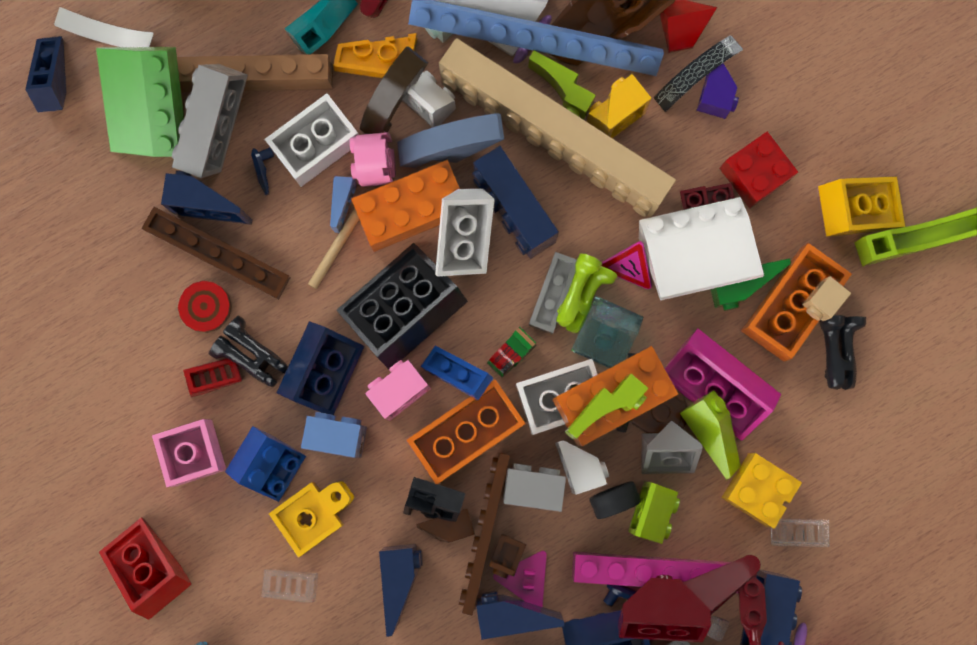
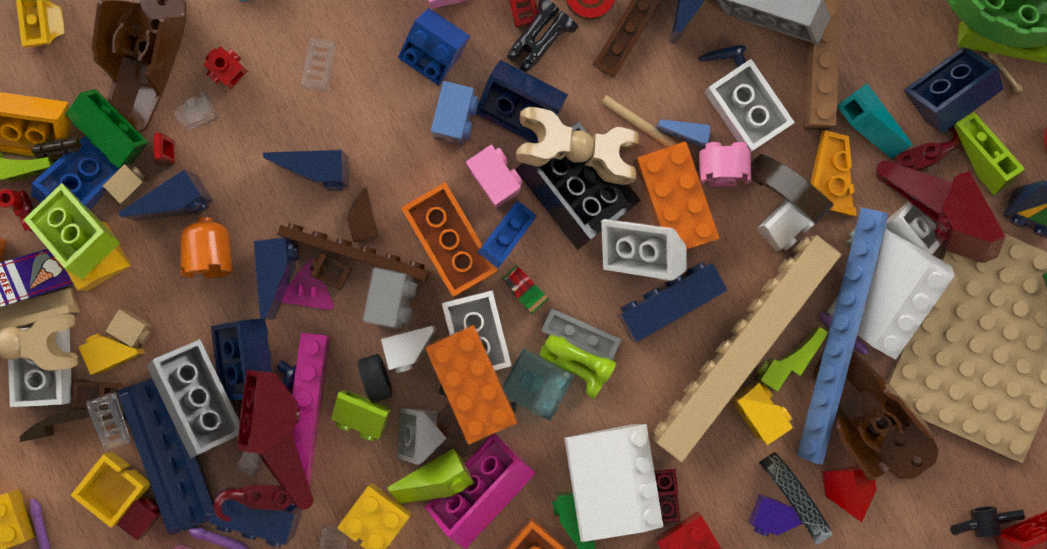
camera: 90 degrees right, 5 degrees up
(323, 508) = (388, 99): yellow plate -> none
(362, 305) = (578, 146): none -> tan piece
(434, 500) = (386, 205): black slope -> none
(451, 141) = (737, 242): sand blue slope -> none
(627, 395) = (468, 392): lime slope -> none
(631, 265) = (602, 412): piece -> none

